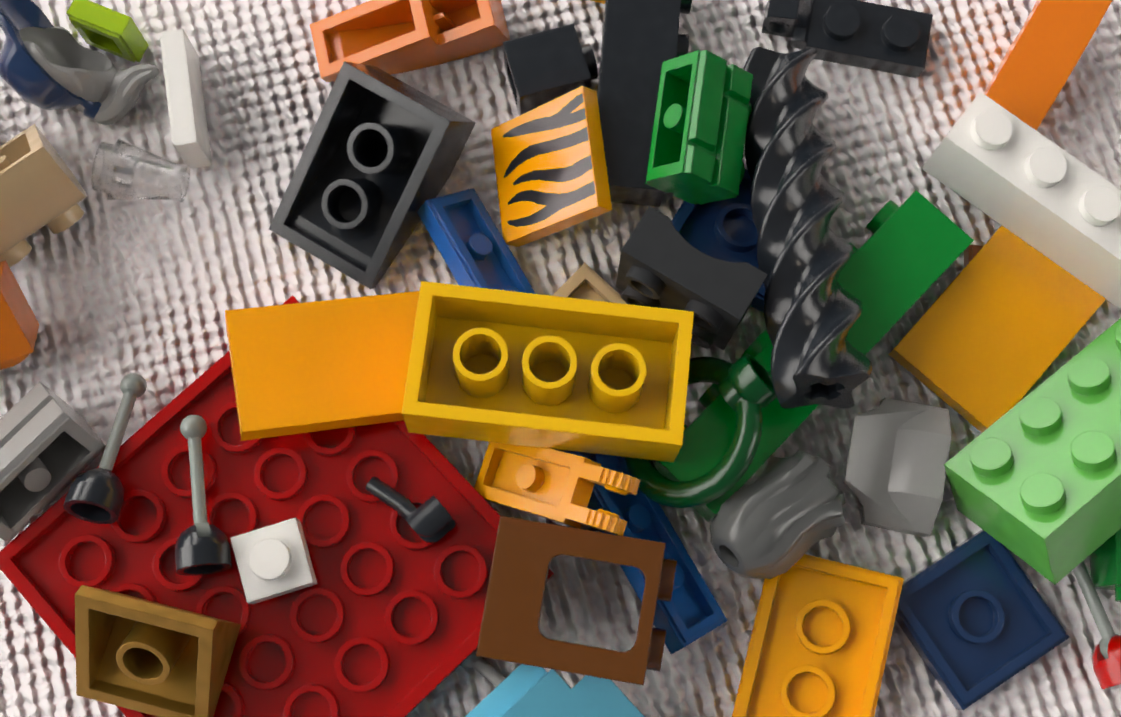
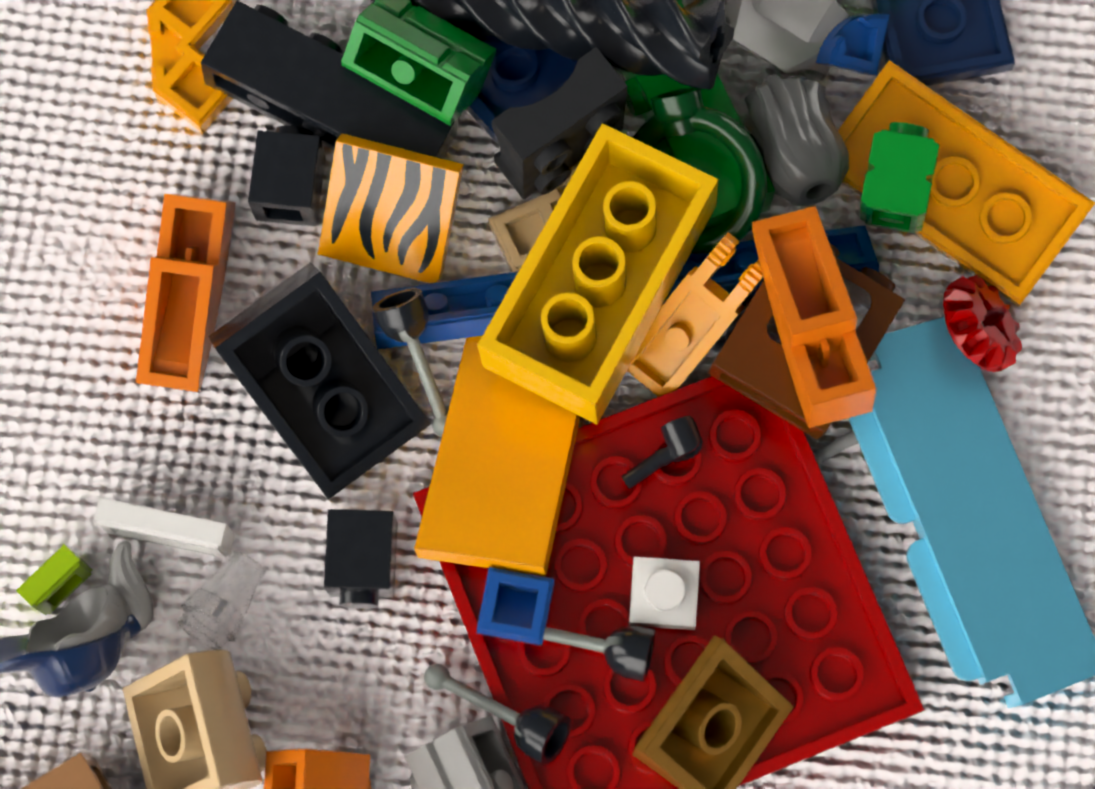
camera: 65 degrees left, 0 degrees up
(204, 425) = (515, 606): none -> blue slope
(217, 274) = (360, 556): none -> black brick
(444, 218) = (404, 319): none -> black hinge
(580, 594) = (813, 317): none -> orange slope
(772, 630) = (899, 178): none -> green brick
(908, 539) = (855, 44): none -> blue tile

